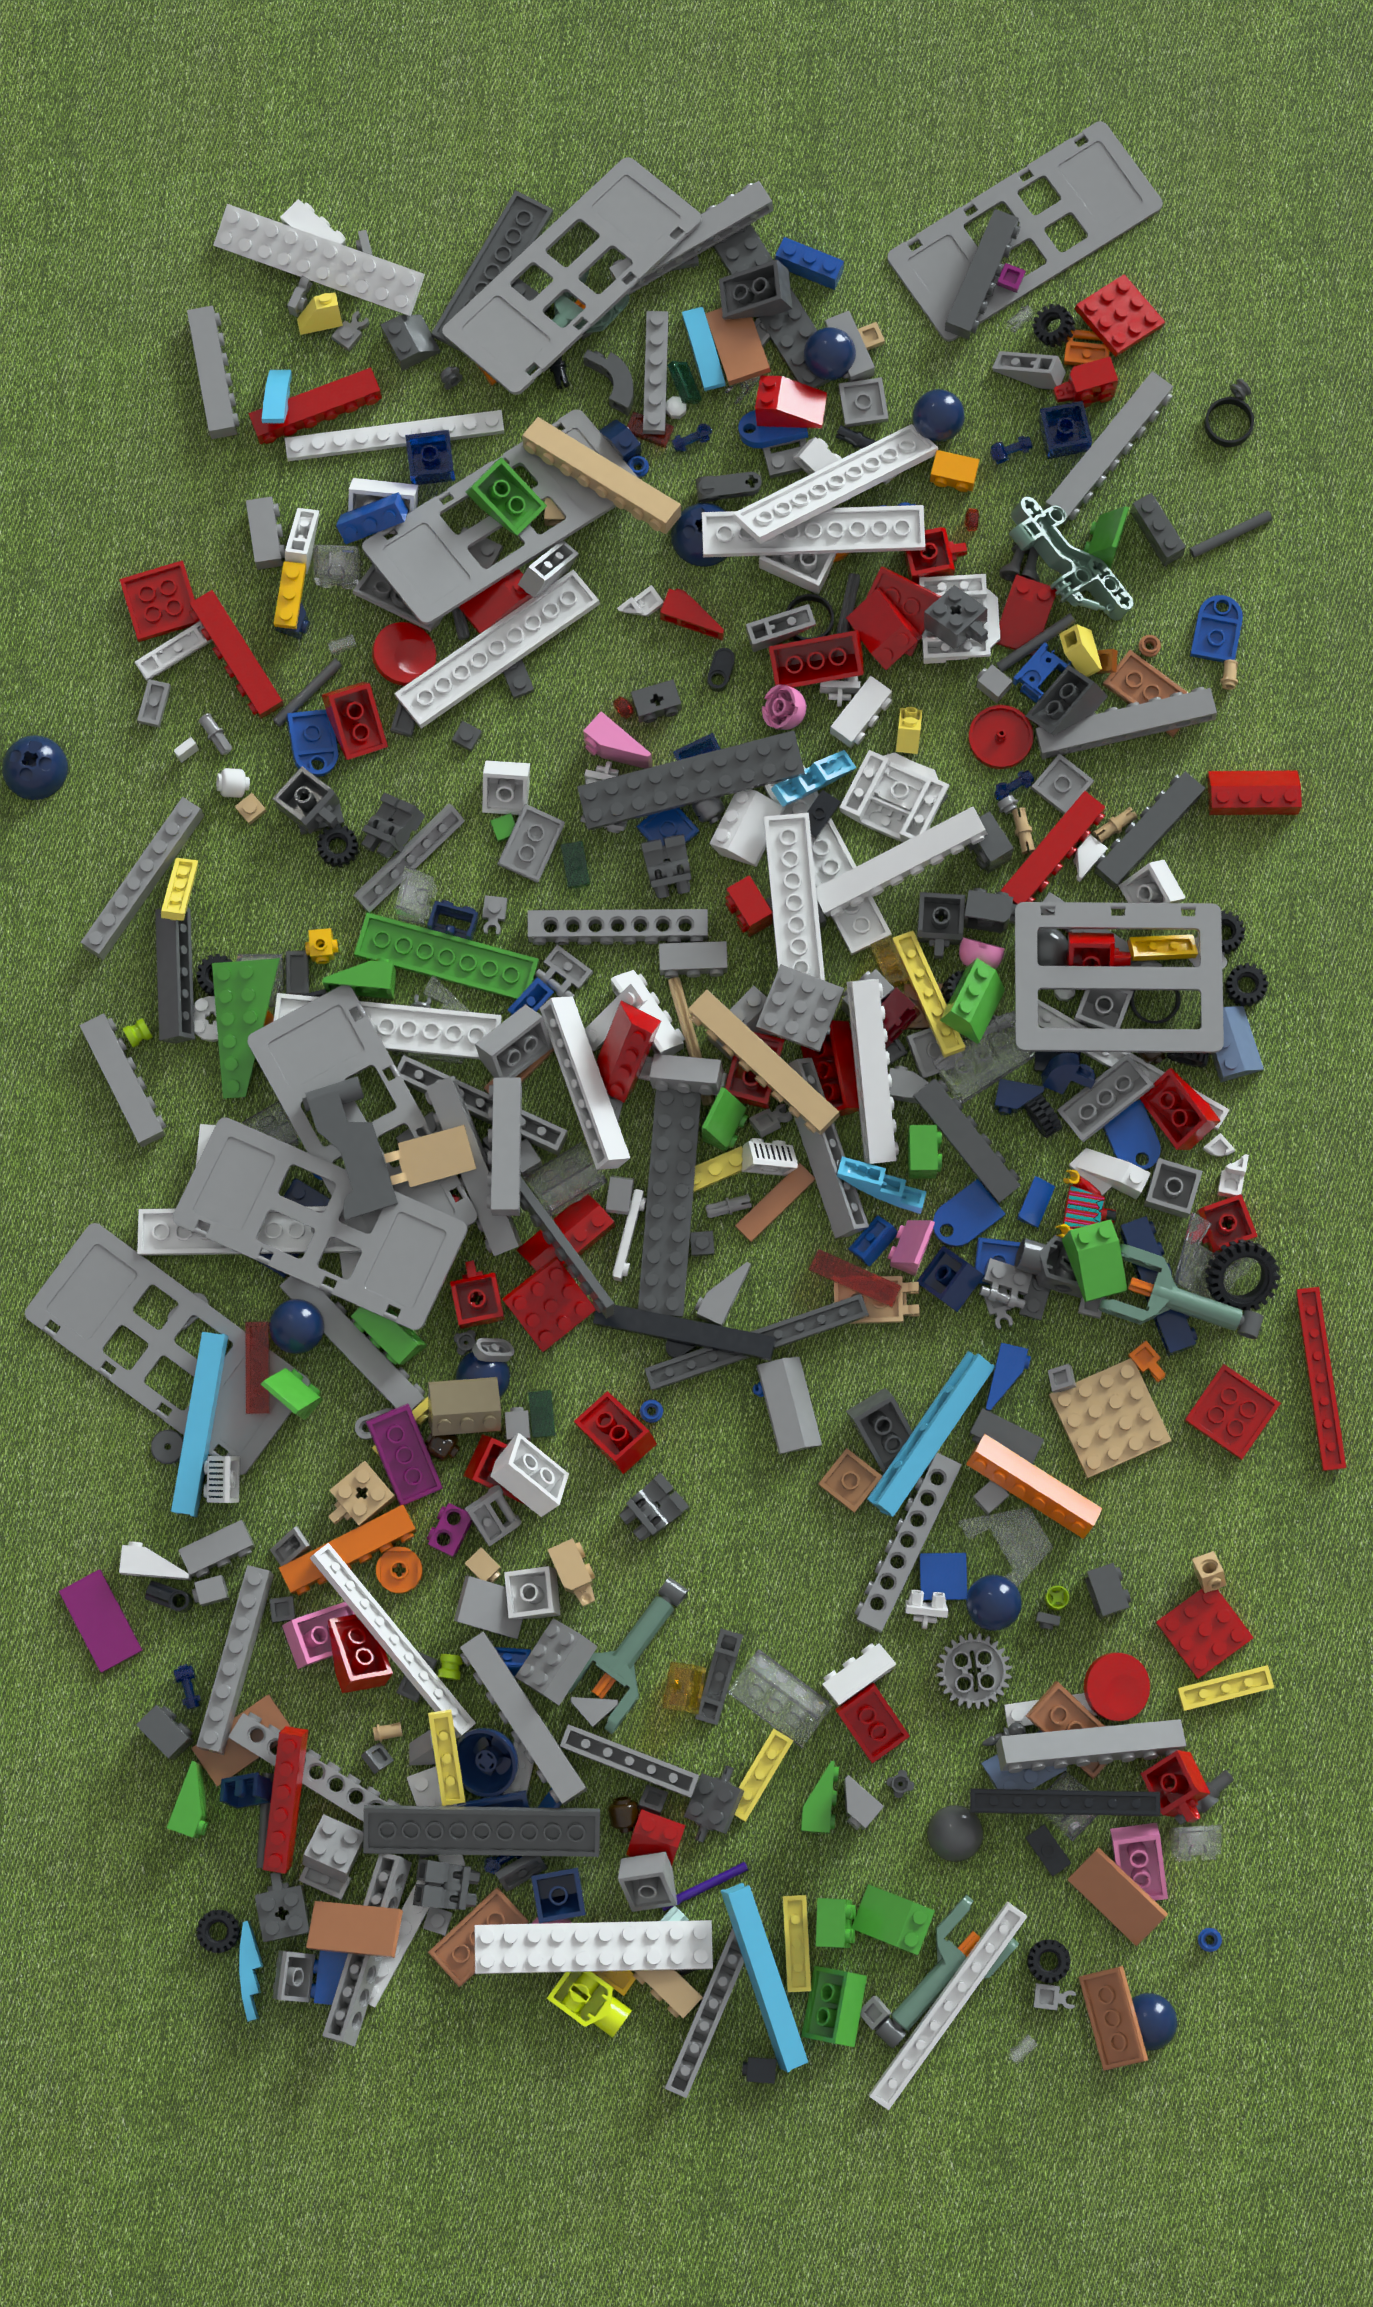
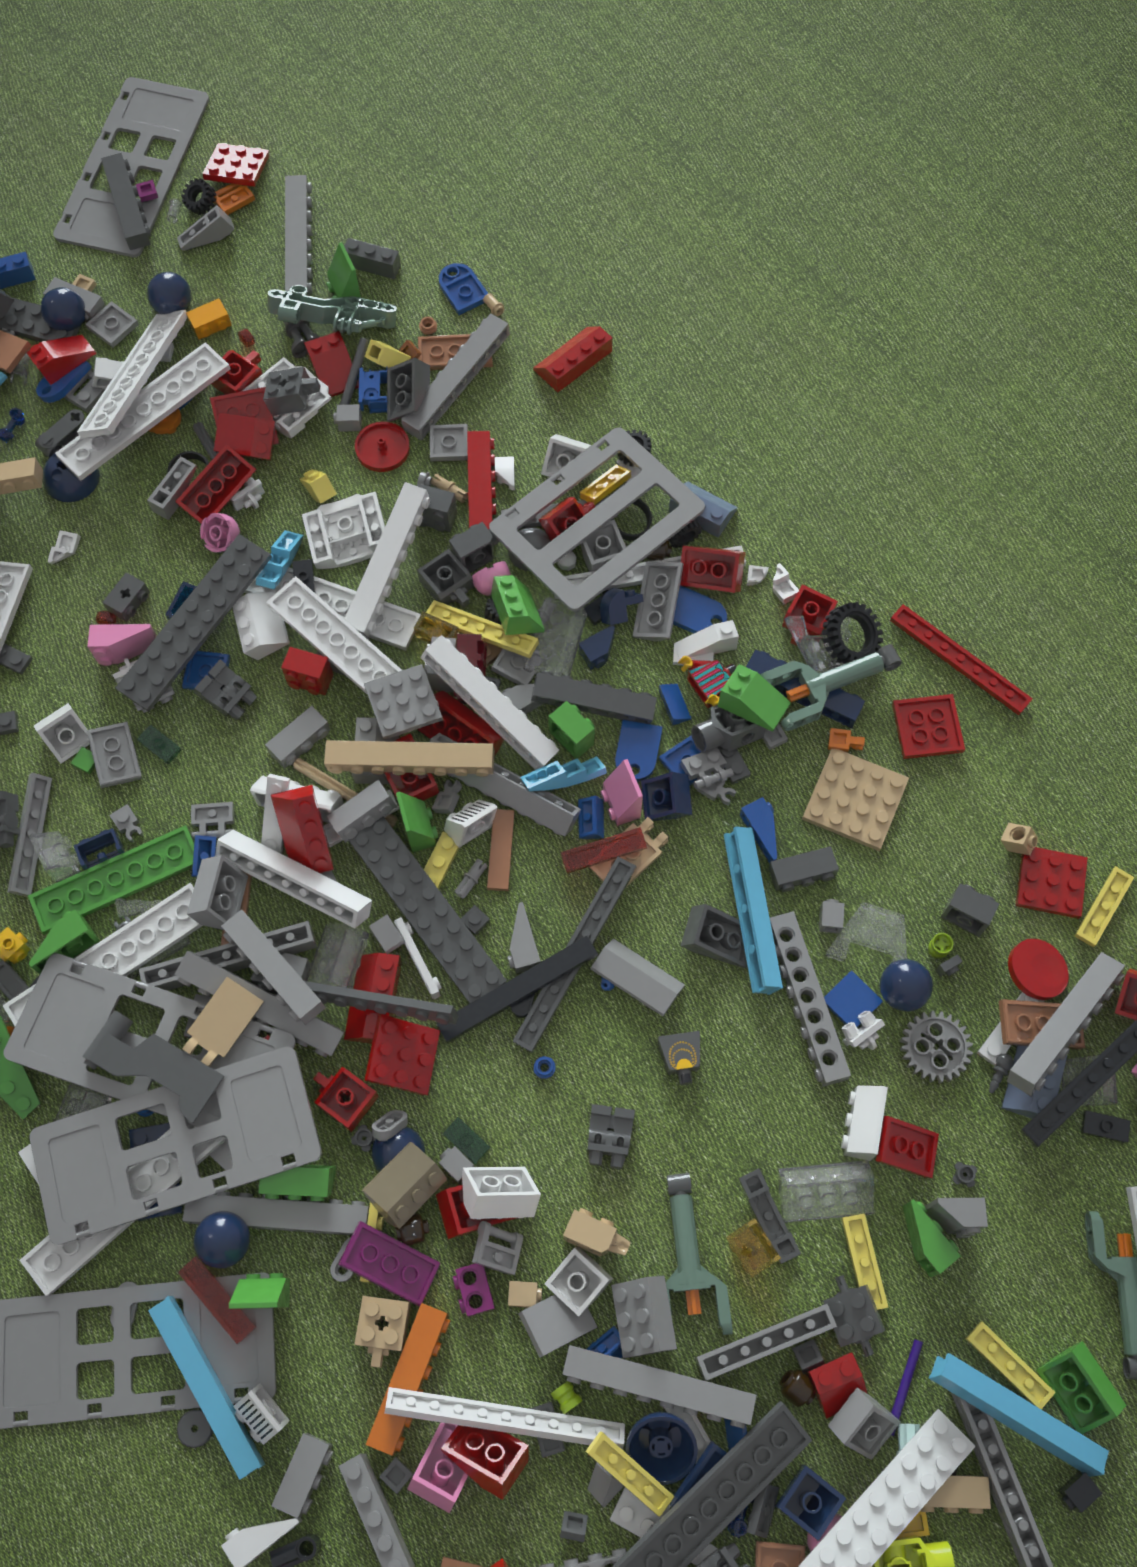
camera: 45 degrees left, 10 degrees down
(210, 1591) = (325, 1515): light grey brick -> none
(291, 1547) = (361, 1418): light grey slope -> none
(387, 1731) = (562, 1496): tan pin -> none
(390, 1560) = (475, 1358): orange plate -> none
(594, 1709) = (703, 1327): light grey slope -> none
(608, 918) = (213, 759): light grey brick -> none
(615, 1432) = (533, 1105): red slope -> none
(687, 613) = (102, 528): red slope -> none
(709, 810) = (223, 635): flat silver head -> none
(721, 665) = (154, 543): black piece -> none
(766, 1497) = (681, 1054): none -> dark grey torso
(800, 569) = (154, 445): white slope -> none
(835, 1923) = (1025, 1323): bright green brick -> none
(850, 1480) = (728, 991): medium nougat plate -> none
(856, 439) = (122, 349): black pin -> none
(861, 712) = (276, 499): white brick -> none
(874, 2012) = (1113, 1363): light grey plate -> none
(893, 1919) = (1058, 1280): bright green slope -> none
(955, 1833) = (1034, 1175): dark grey piece -> none
(1000, 453) = (231, 289): clear blue bar -> none
(1003, 789) = (414, 472): clear blue bar -> none
(1034, 1486) = (854, 883): brick -> none
(1043, 1116) = (629, 643): black tyre -> none
(1062, 1378) = (801, 799): light grey plate -> none
(1065, 429) = (259, 245): clear blue brick -> none
(1089, 383) = (252, 208): red hinge -> none
(1115, 824) = (505, 439): tan pin -> none
(1149, 830) = (530, 426): dark grey brick -> none
(1172, 1188) = (755, 619): light grey brick -> none
(1230, 534) = (416, 236): dark grey piece -> none
(1233, 401) = (362, 188): black tyre -> none
(1240, 389) = (350, 152): dark grey bush -> none
(1246, 998) = (683, 458): black tyre -> none

